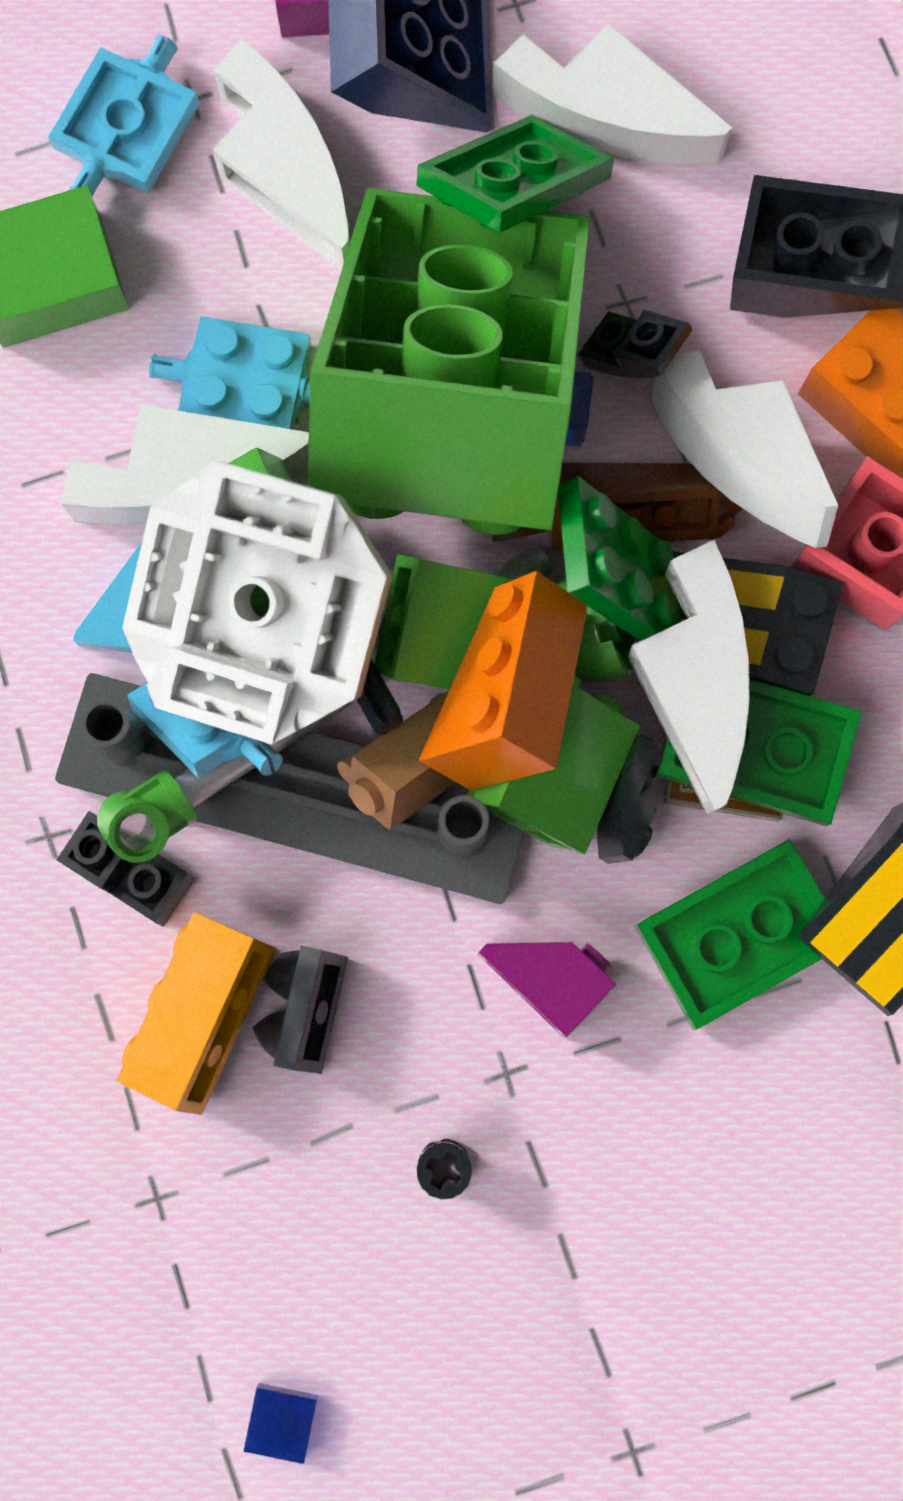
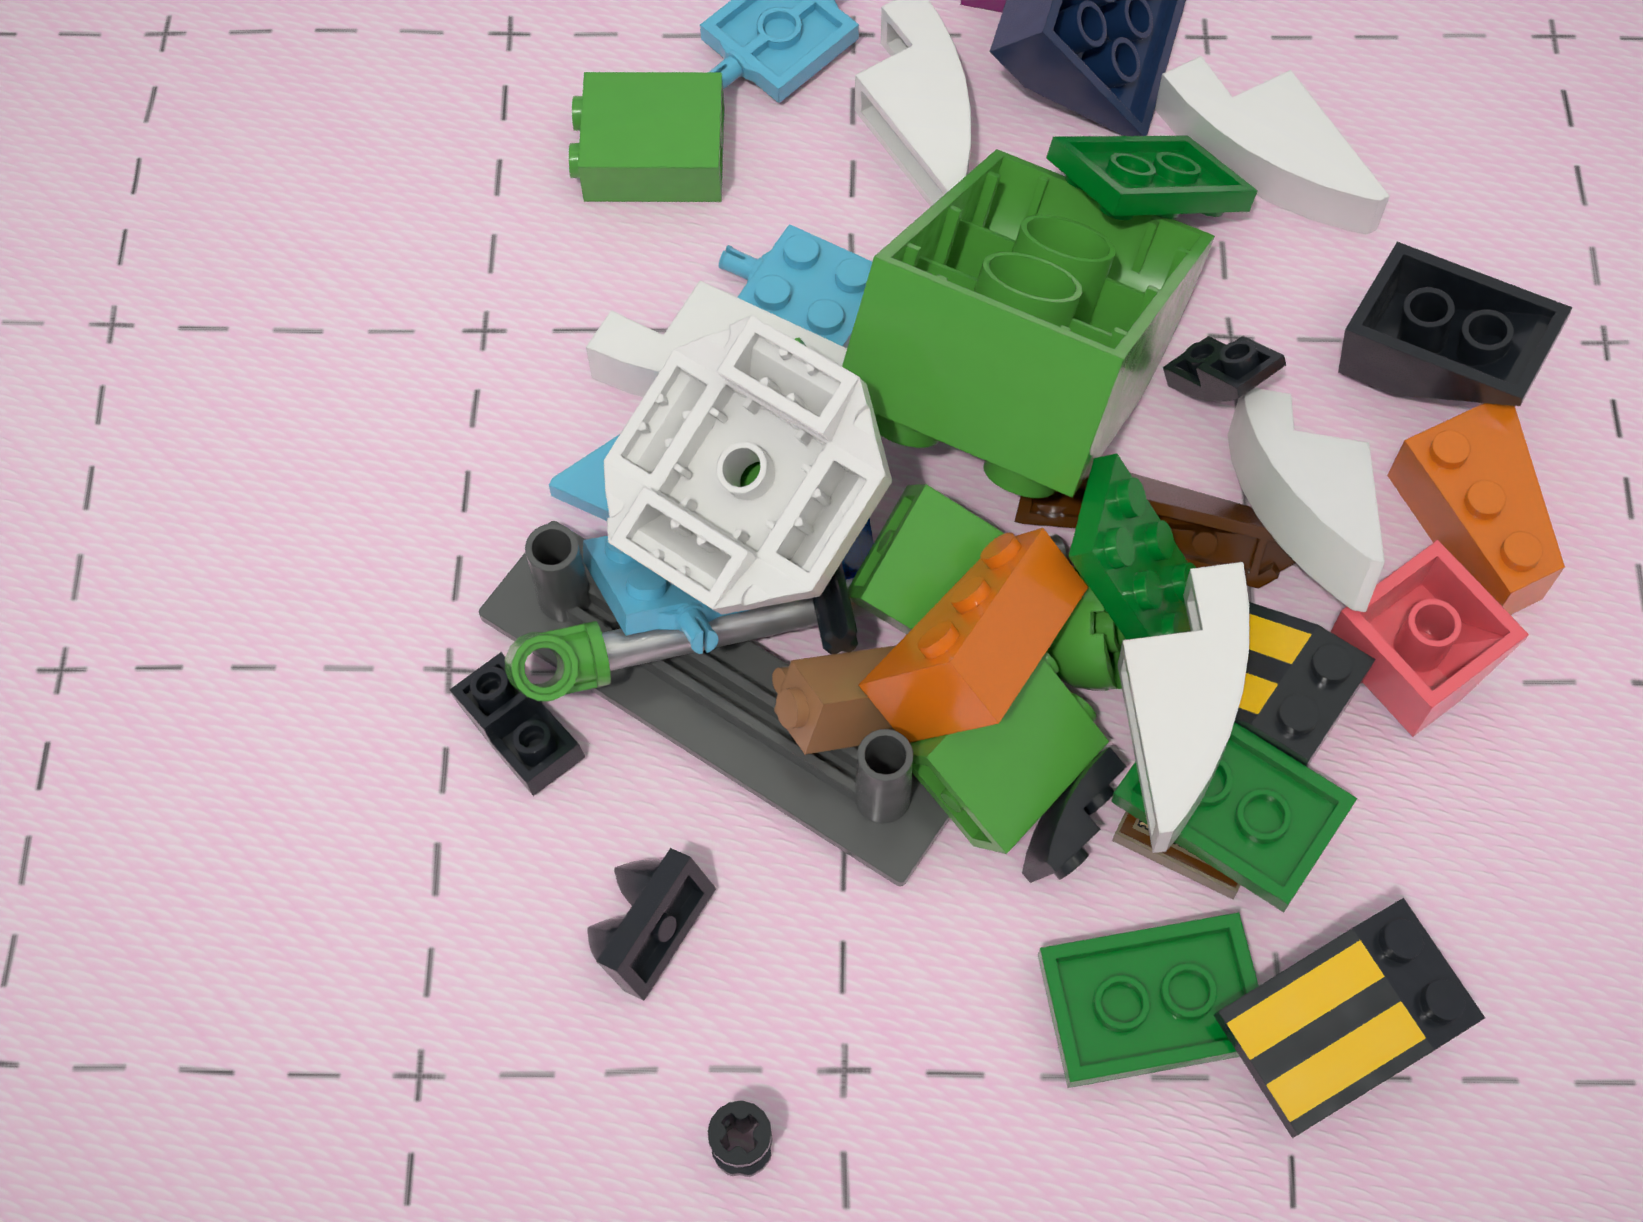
camera: 20 degrees right, 15 degrees down
(195, 1015) = (535, 886): light orange brick -> none
(553, 978) = (928, 975): magenta slope -> none
(579, 408) = (1144, 416): clear blue tile -> none

